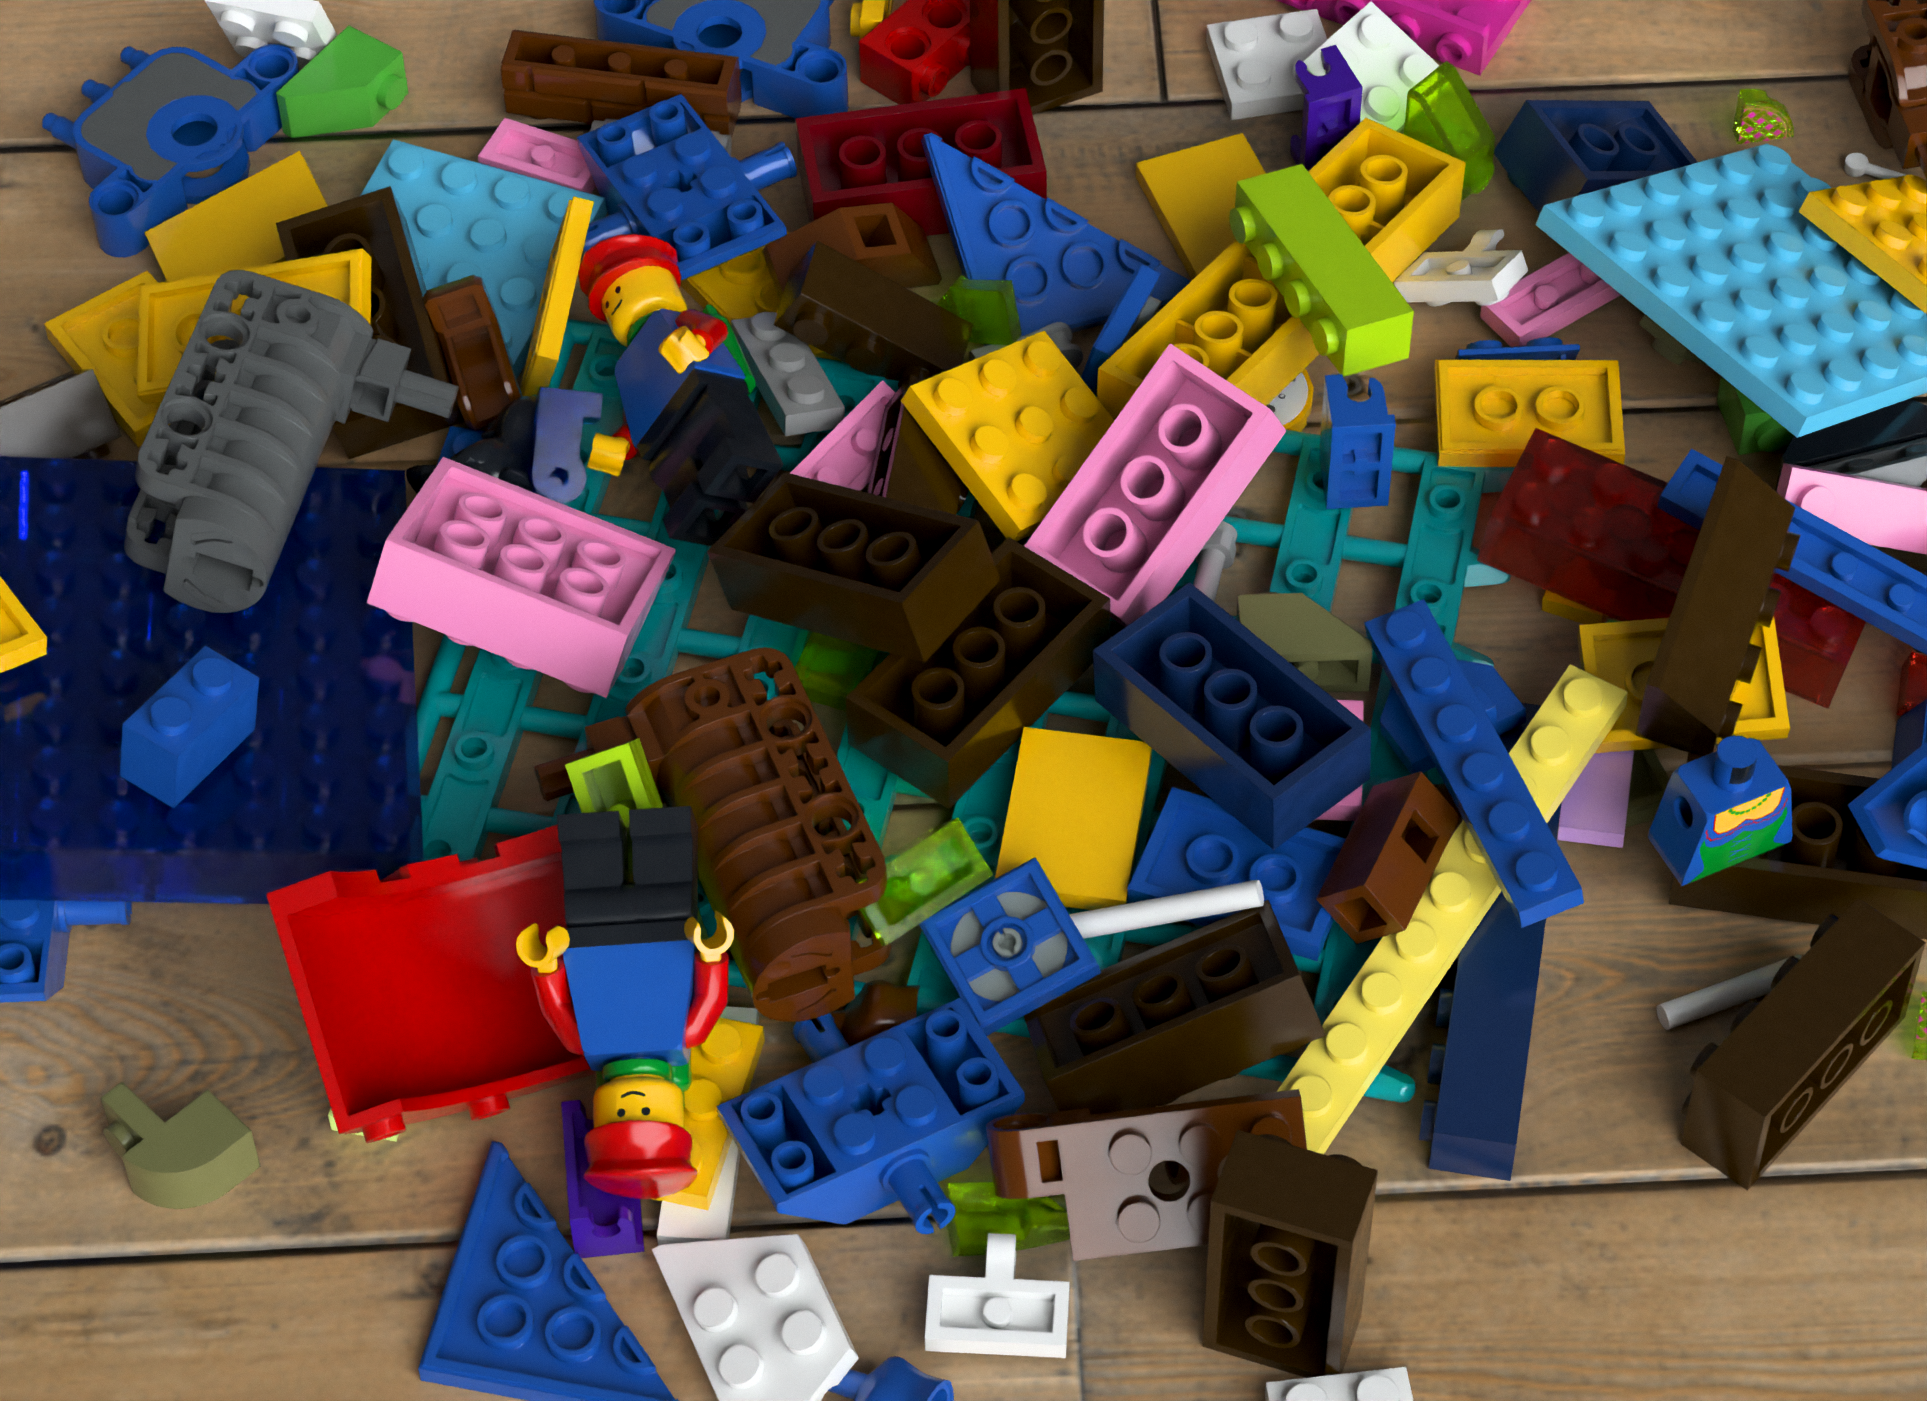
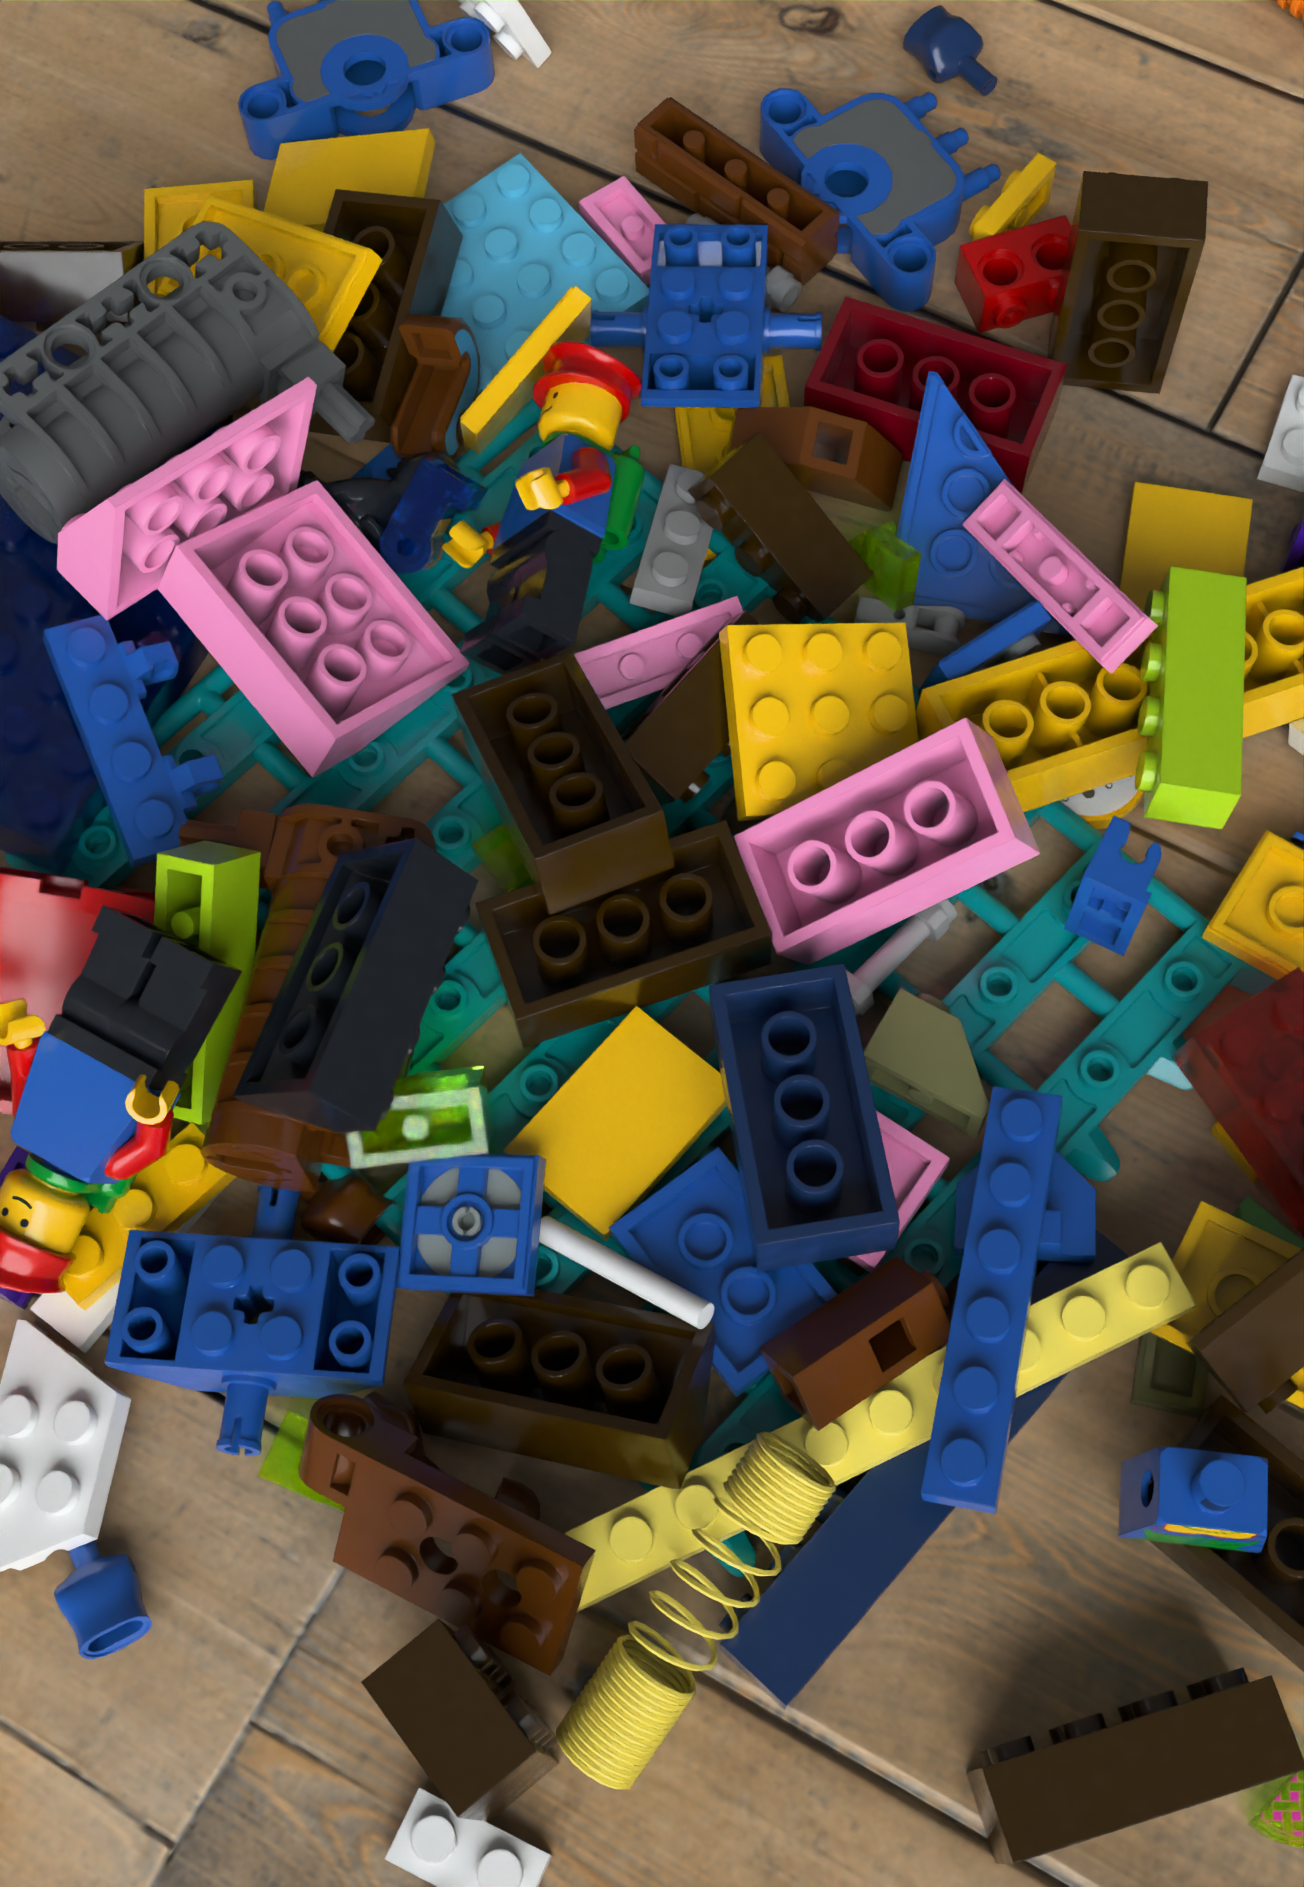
camera: 35 degrees right, 15 degrees up
(343, 87) = (517, 84): bright green slope -> none
(350, 516) = (127, 540): none -> bright pink slope
(382, 706) = (104, 695): none -> blue hinge
(816, 773) = (359, 987): none -> black slope
(997, 1311) = (244, 1563): white plate -> none
(1138, 235) = (1059, 576): none -> bright pink plate
(1413, 970) = (642, 1687): none -> light yellow piece
(1598, 801) = (1116, 1381): lavender tile -> none
(1718, 996) = (1119, 1647): white piece -> none

